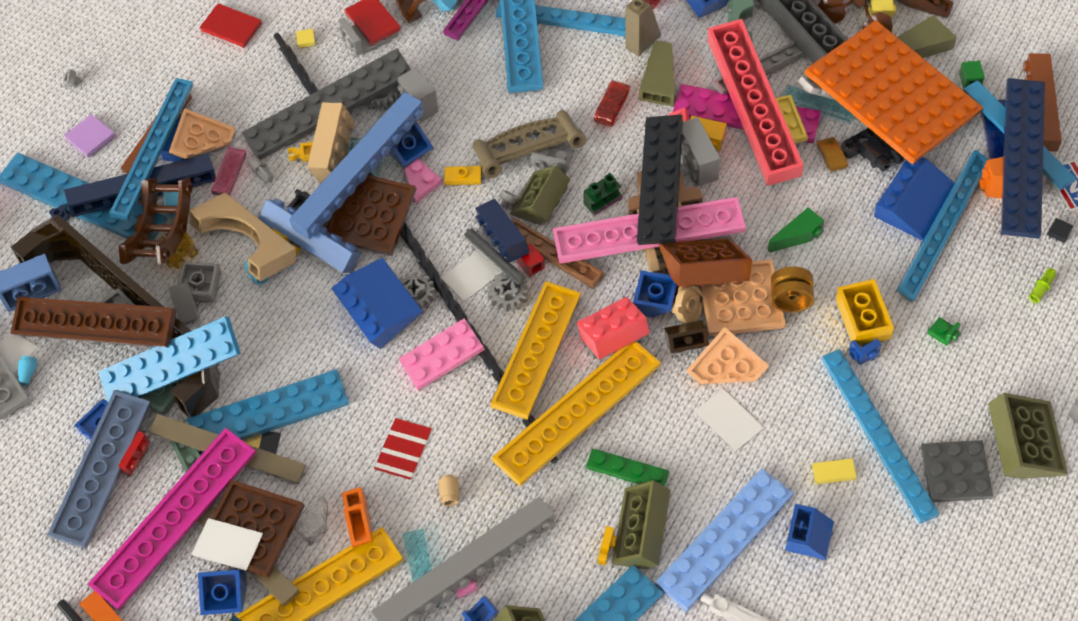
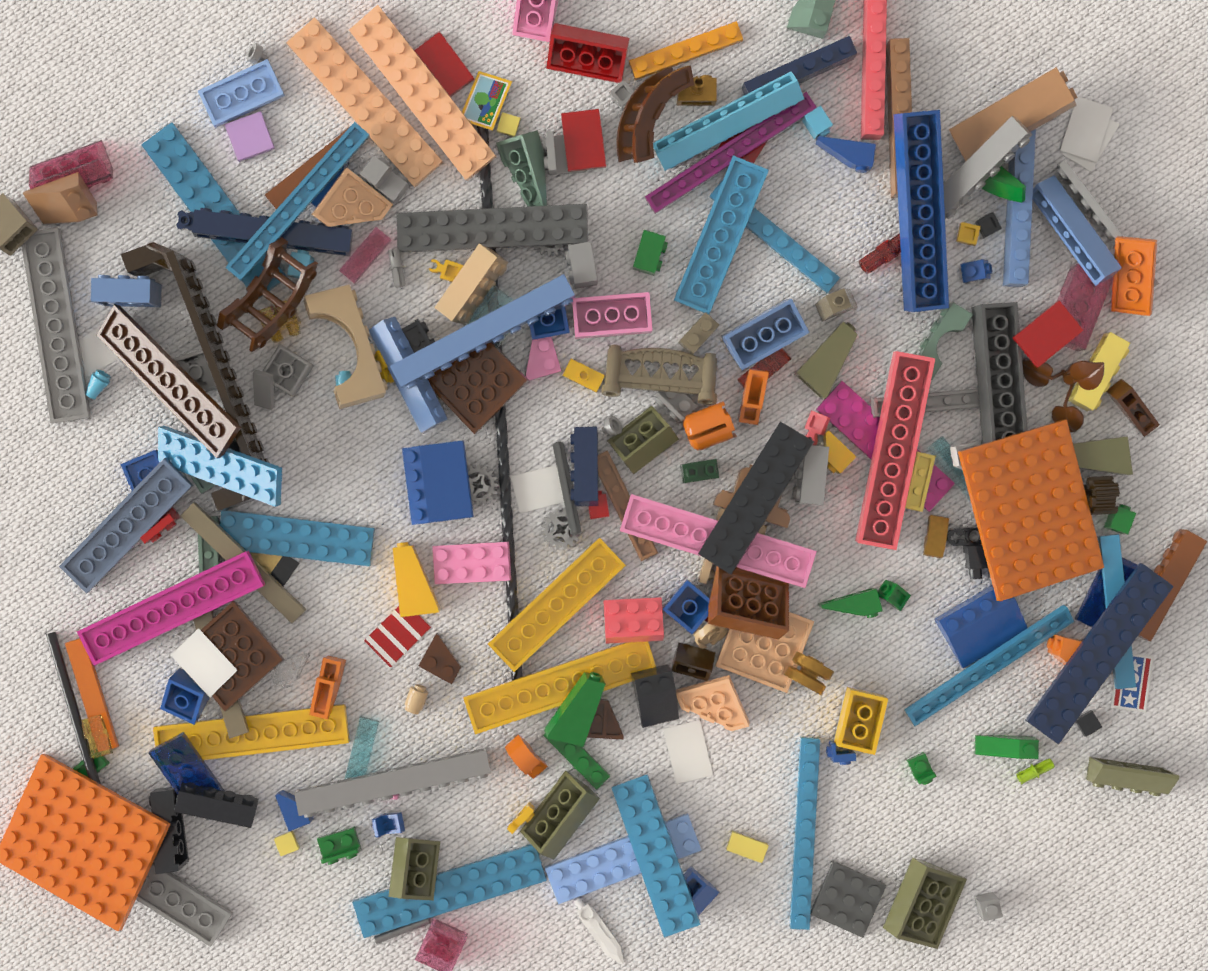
camera: 25 degrees right, 30 degrees up
(69, 109) = (241, 93): none -> light blue plate
(163, 68) = (364, 102): none -> light nougat plate
(212, 106) = (384, 180): none -> light grey brick
(224, 45) = (422, 93): none -> light nougat plate
(278, 23) = (490, 93): none -> sticker
(331, 52) = (526, 163): none -> sand green wedge
(396, 395) = (413, 586): none -> yellow slope
(455, 450) = (440, 661): none -> reddish brown wing
(462, 119) = (612, 315): none -> bright pink brick
(468, 68) = (649, 253): none -> green brick
(542, 101) = (698, 333): none -> dark tan brick
(580, 486) = (525, 757): none -> orange brick
(590, 156) = (709, 427): none -> orange cylinder
(595, 75) = (765, 334): none -> medium blue slope
(605, 420) = (576, 713): none -> green slope
(613, 118) = (753, 396): none -> orange slope
(634, 427) = (605, 723): none -> reddish brown wing
(670, 379) = (655, 695): none -> black slope
(754, 510) = (656, 856): none -> dark azure plate
(827, 209) = (893, 594): none -> green bracket
(944, 59) = (1101, 494): none -> dark brown brick
(1005, 276) = (1007, 746): none -> green slope

